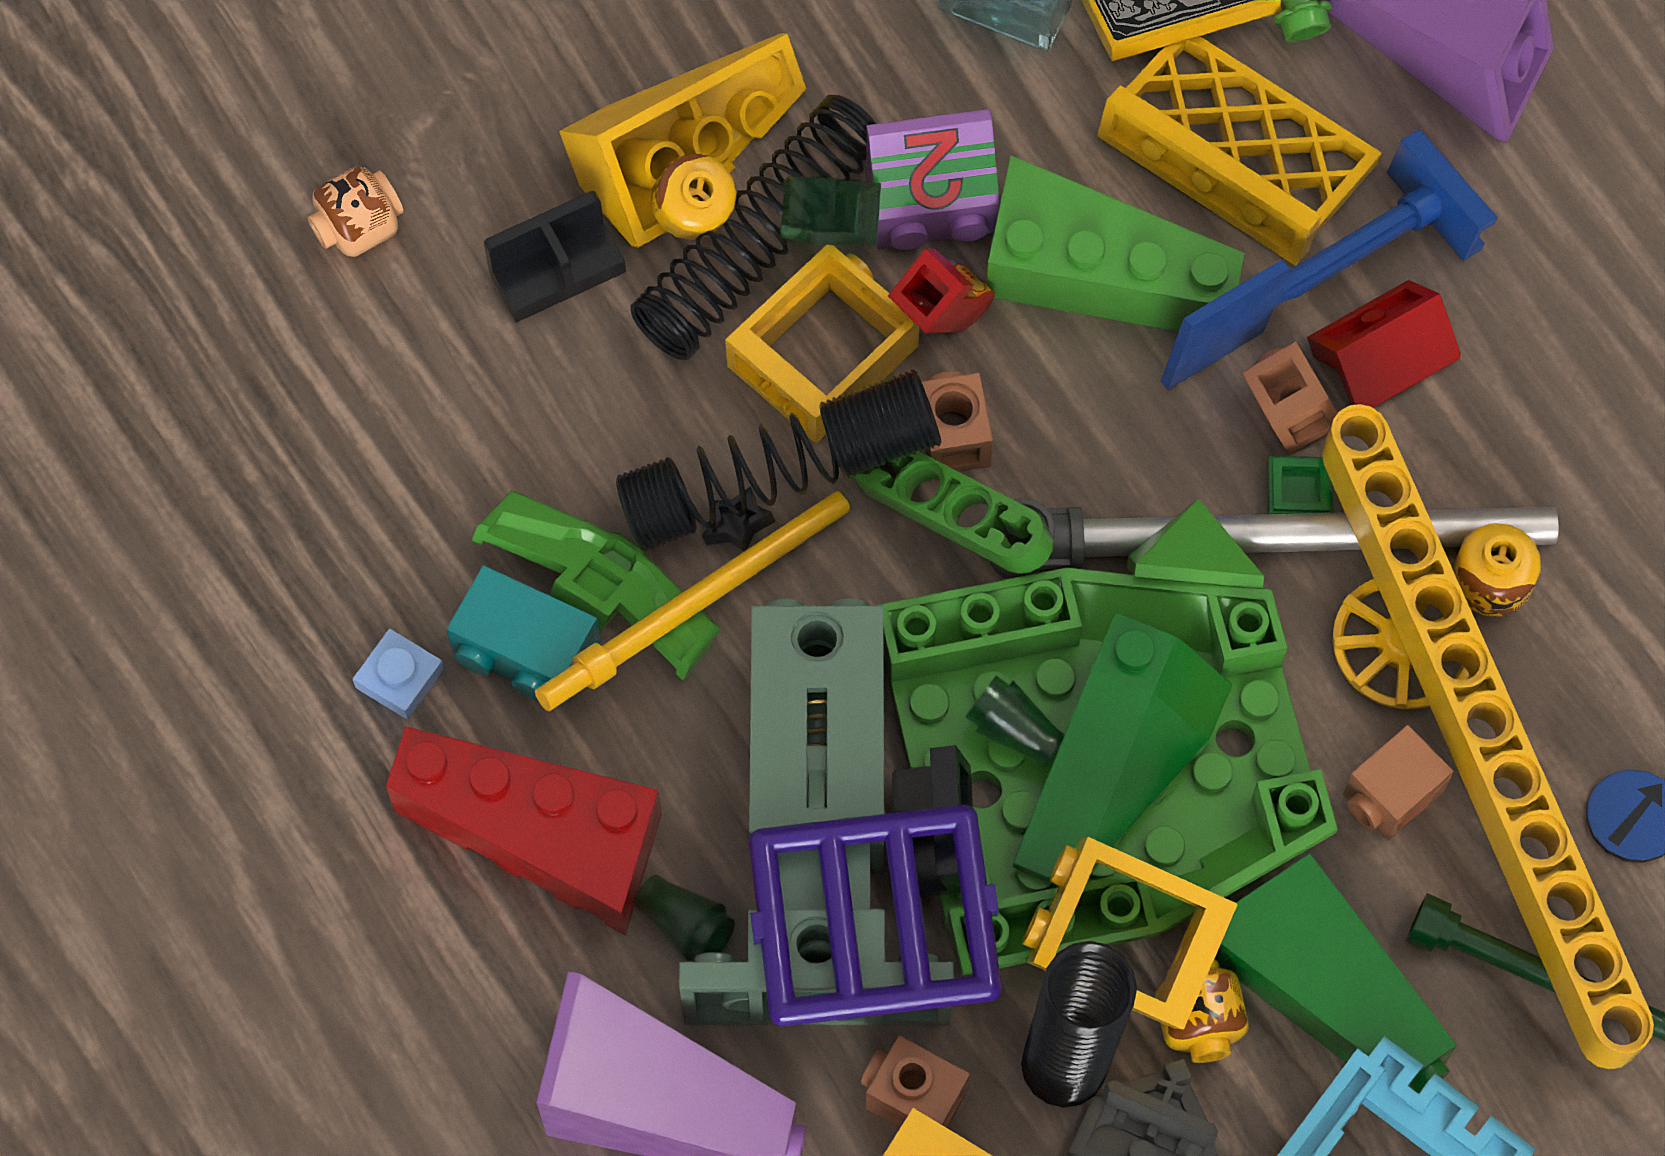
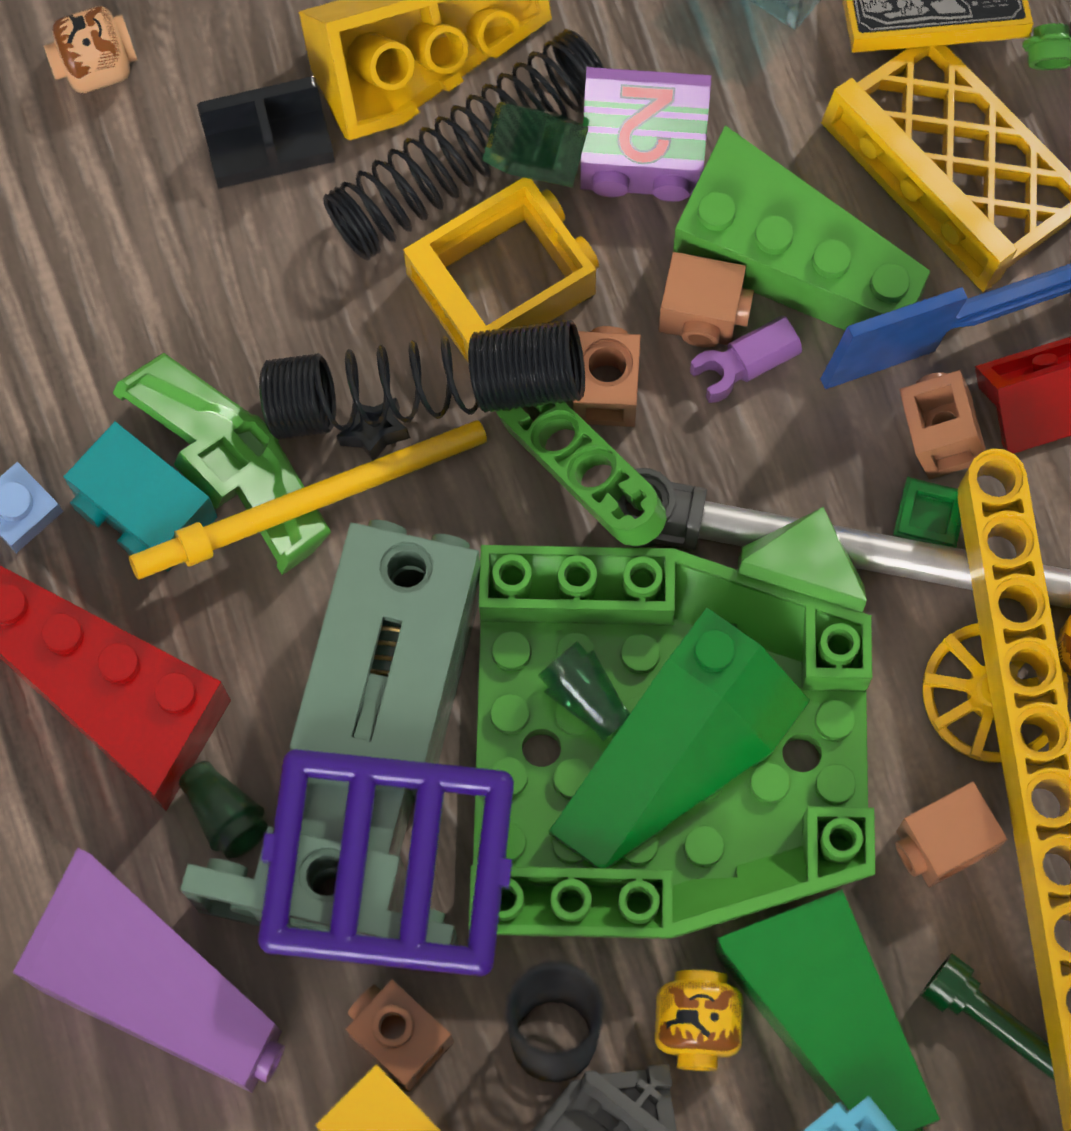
camera: 15 degrees right, 5 degrees up
(674, 202) = (396, 120): yellow head -> none
(935, 786) = (486, 742): black panel -> none
(941, 294) = (632, 248): red leg -> none
(1030, 328) = (704, 300): none -> nougat brick
(1086, 374) = (748, 356): none -> medium lavender bar
(1194, 953) = (695, 973): yellow window -> none

